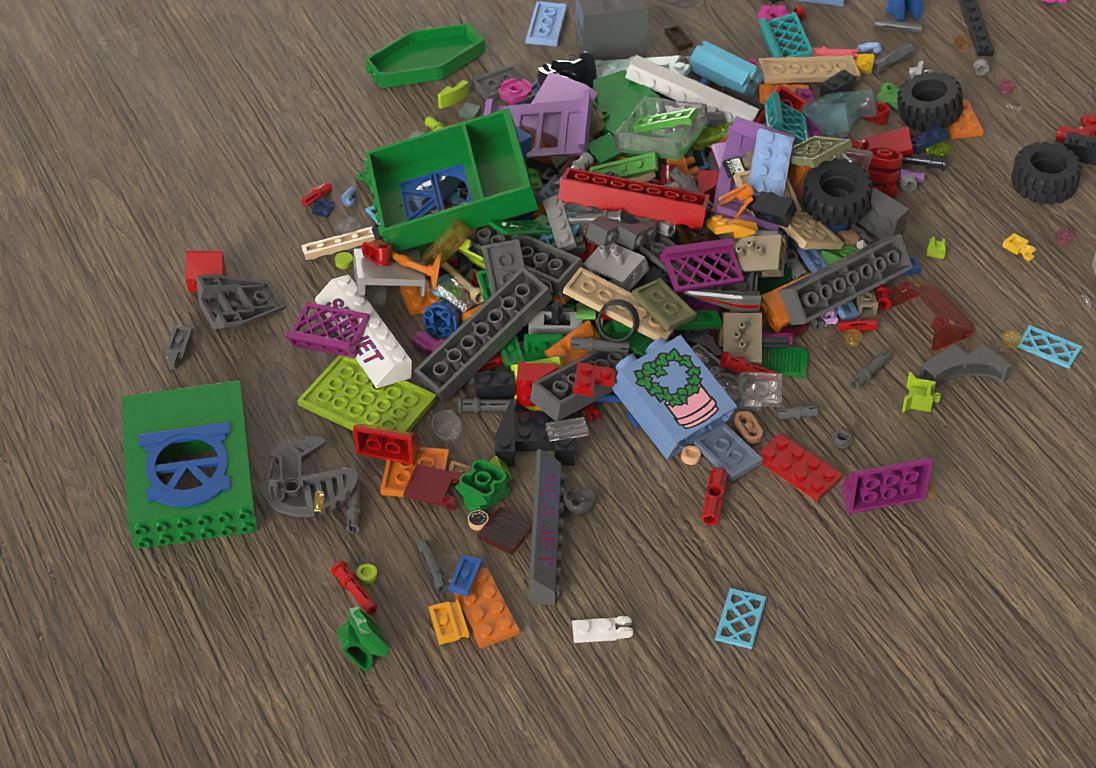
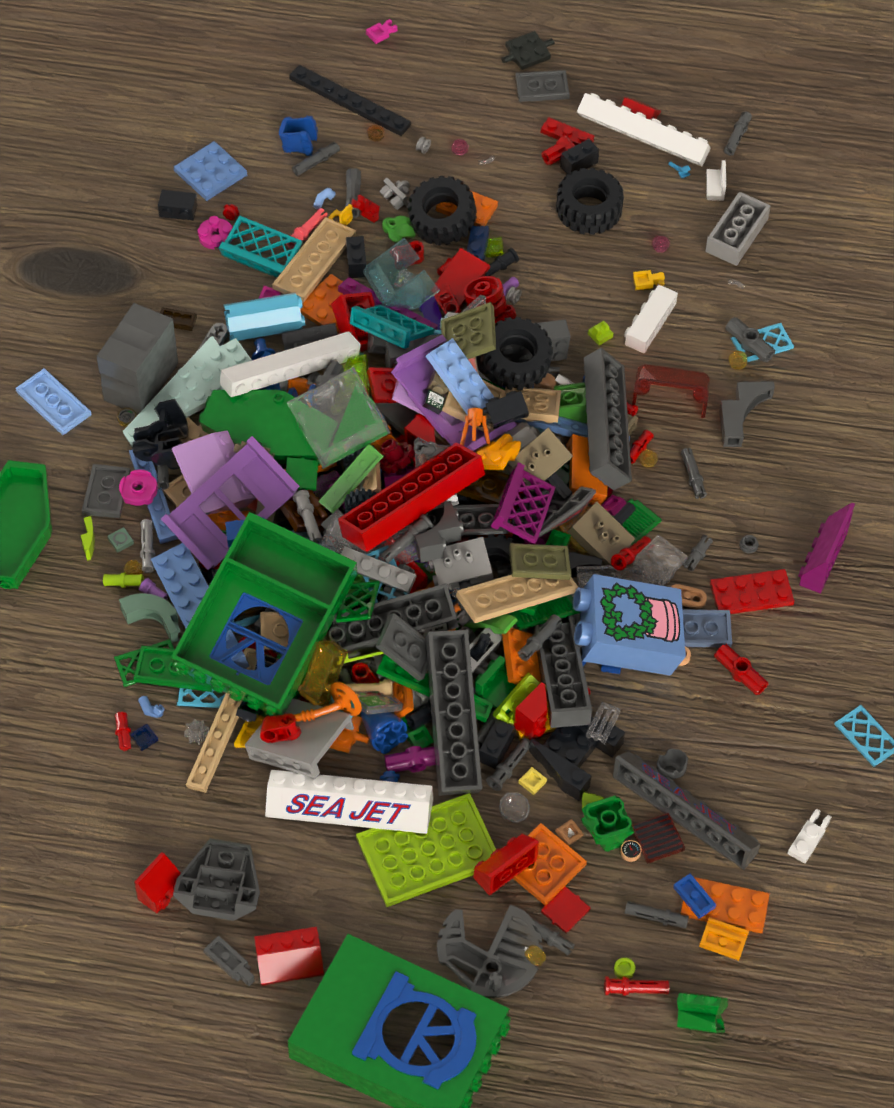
camera: 55 degrees left, 10 degrees up
(206, 366) = (289, 956): none -> red slope
(320, 342) = (336, 842): magenta fence -> none
(344, 260) = (232, 762): lime tile -> none
(389, 510) = (565, 910): none -> red piece
(408, 345) = (390, 776): none -> blue plate
(432, 485) = (573, 861): dark red flag -> none
(486, 428) = (532, 781): none -> light yellow tile
(589, 374) = (573, 668): red plate -> none
(632, 310) = (524, 597): black tyre -> none
(664, 120) = (341, 408): bright green plate -> none
(887, 70) = (368, 208): none -> red plate
(920, 394) = (746, 459): lime piece -> none
(984, 267) = (651, 318): none -> white brick
(1037, 332) = (750, 339): none -> dark grey piece

